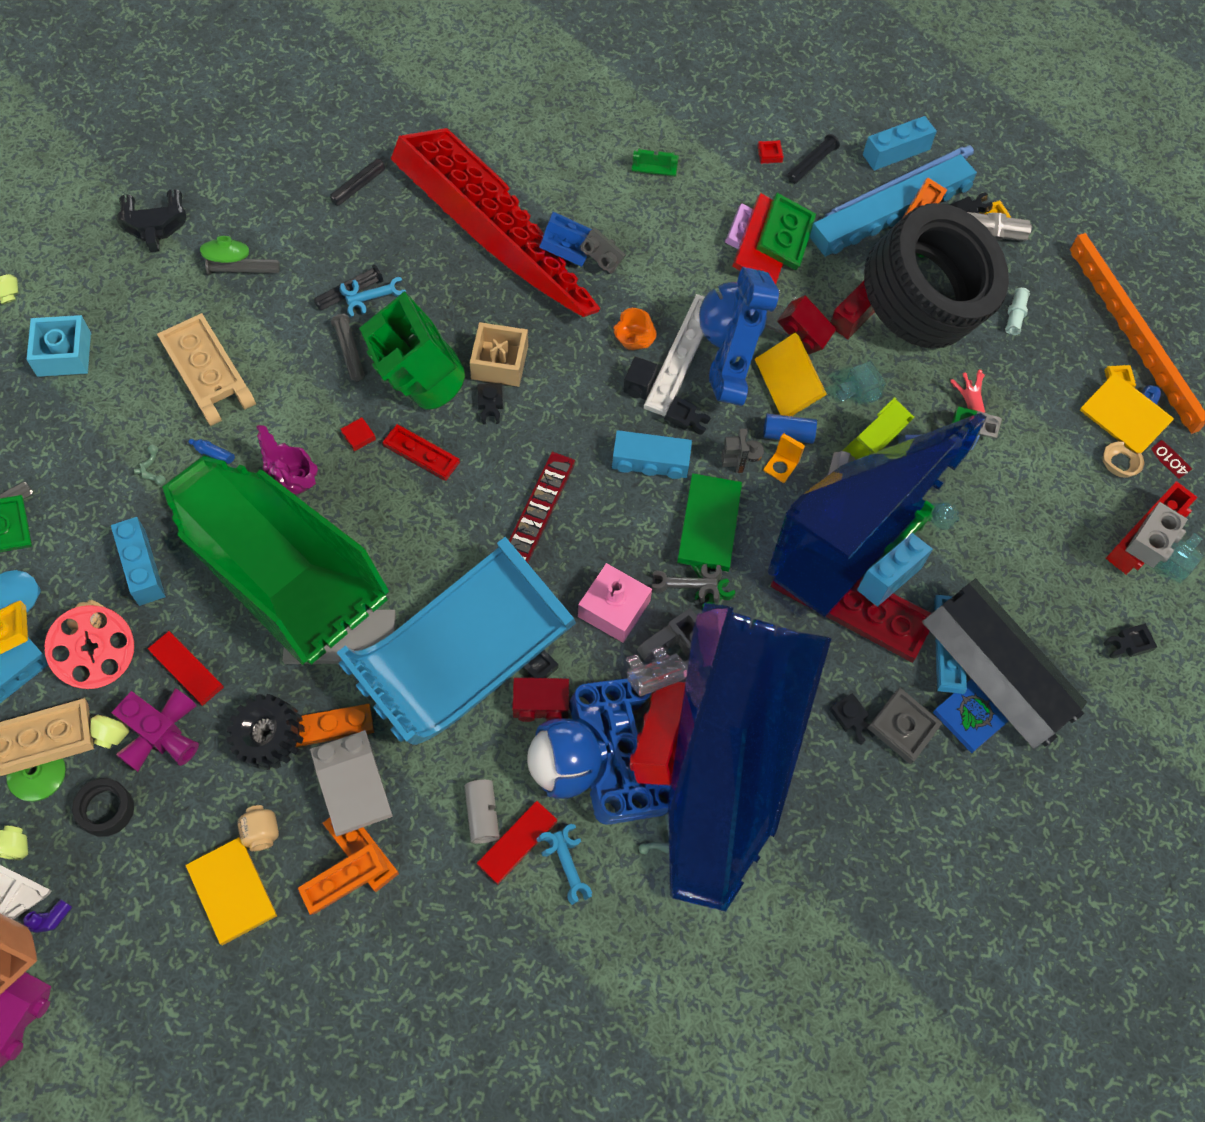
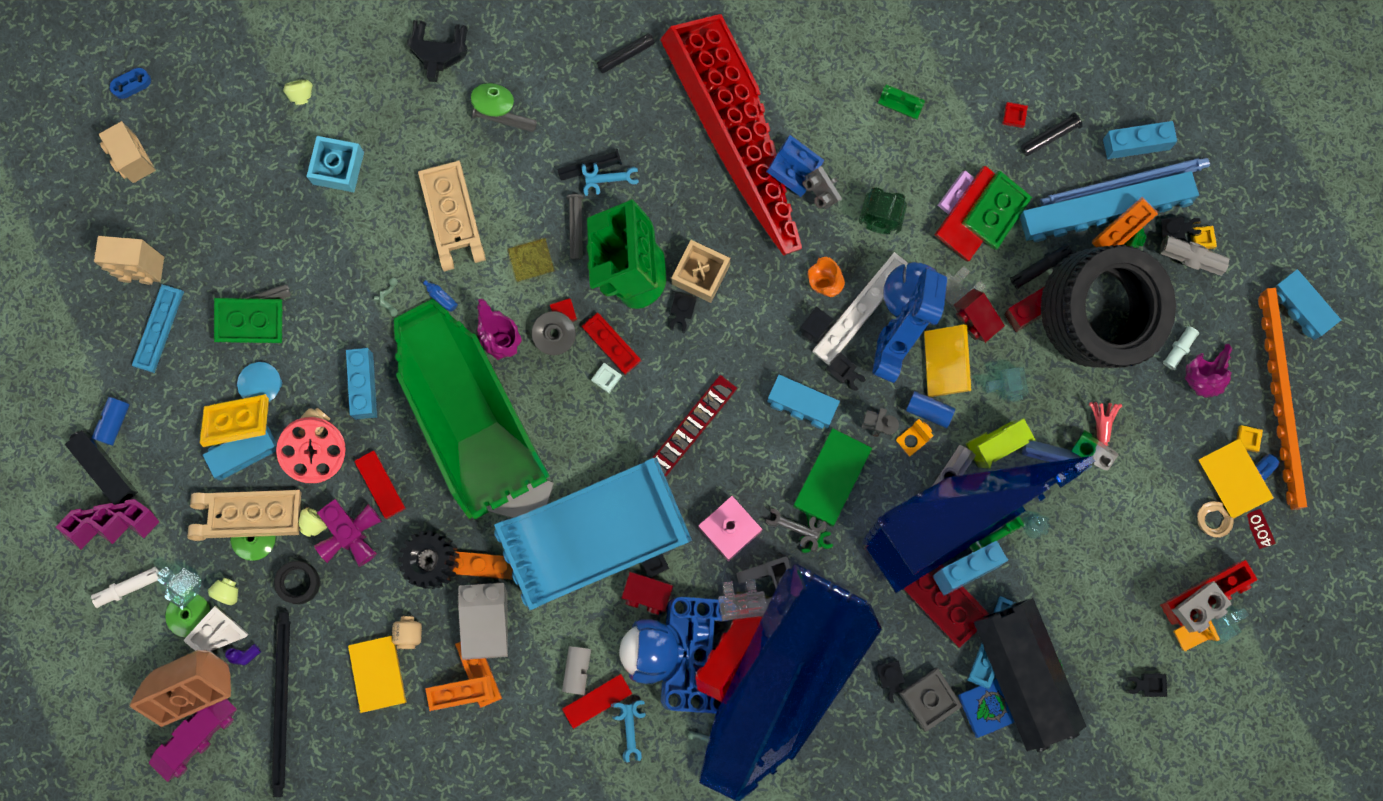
camera: 25 degrees right, 15 degrees up
(111, 969) = (280, 704): none -> black piece
(308, 393) = (531, 260): none -> clear yellow piece
(352, 442) = (542, 333): none -> dark grey dish
(425, 487) = (606, 378): none -> light aqua tile
(673, 255) = (883, 211): none -> clear green brick
(855, 266) = (1048, 262): none -> black pin
(1059, 330) = (1209, 378): none -> magenta hair
(1120, 244) = (1306, 305): none -> dark azure brick
(1151, 579) = (1192, 639): none -> light orange bracket

